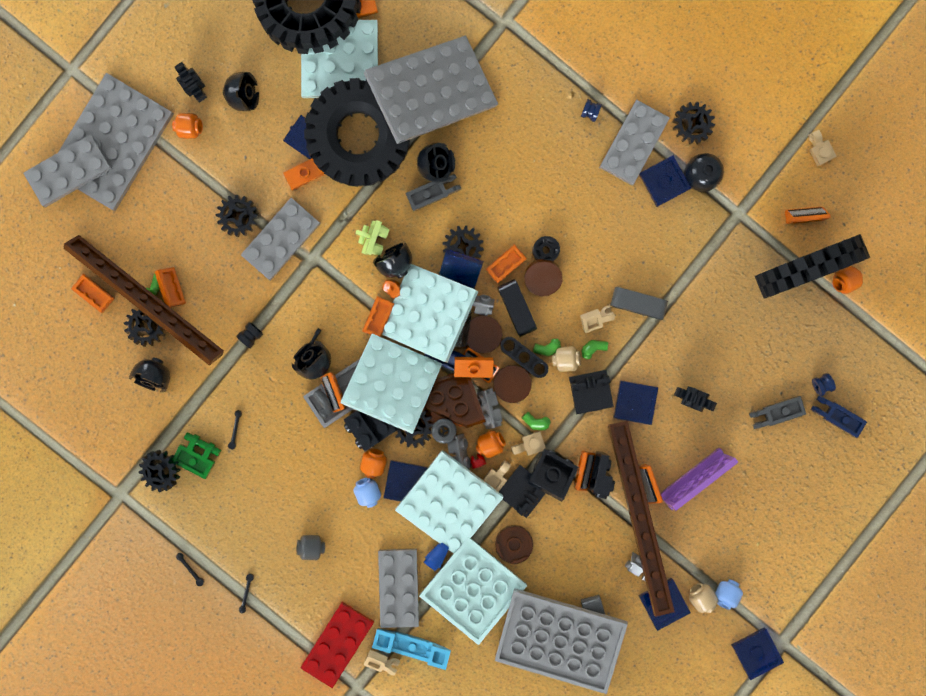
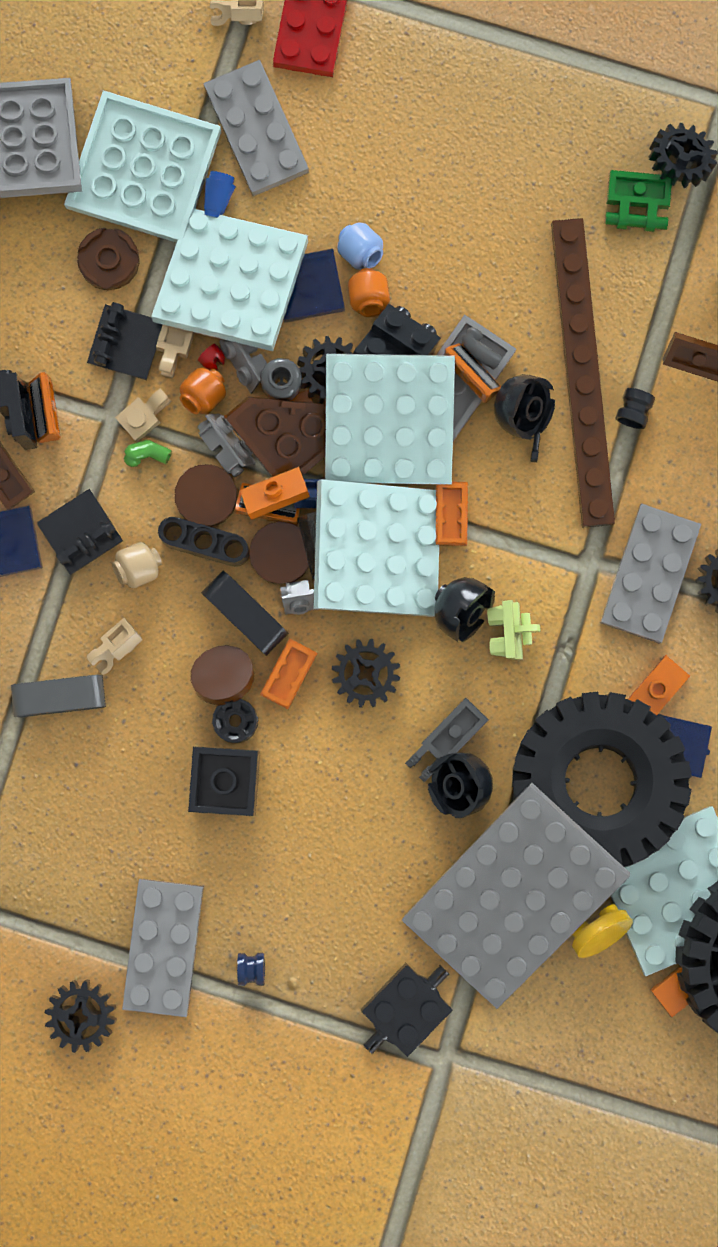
camera: 160 degrees right, 5 degrees down
(199, 581) = (555, 23): black hinge -> none
(232, 445) = (591, 238): black hinge -> none
(242, 609) = (483, 56): black hinge -> none
(270, 369) = (582, 373): none -> reddish brown plate
(310, 547) = (412, 133): dark grey head -> none
(385, 52) = (602, 932): none -> yellow tile
(392, 288) = (449, 566): orange piece -> none
(411, 646) = (201, 51): medium azure slope -> none
(461, 268) = (354, 634): clear blue tile -> none
(515, 55) = (406, 1009): none -> black plate
(547, 350) = (171, 568): bright green arm -> none
(552, 474) = (89, 380): black plate -> none
(565, 217) = (224, 781): none -> black brick
(592, 346) = (105, 599): bright green arm -> none
(665, 181) = (91, 905): clear blue tile -> none
(704, 172) = (34, 944): black cylinder -> none

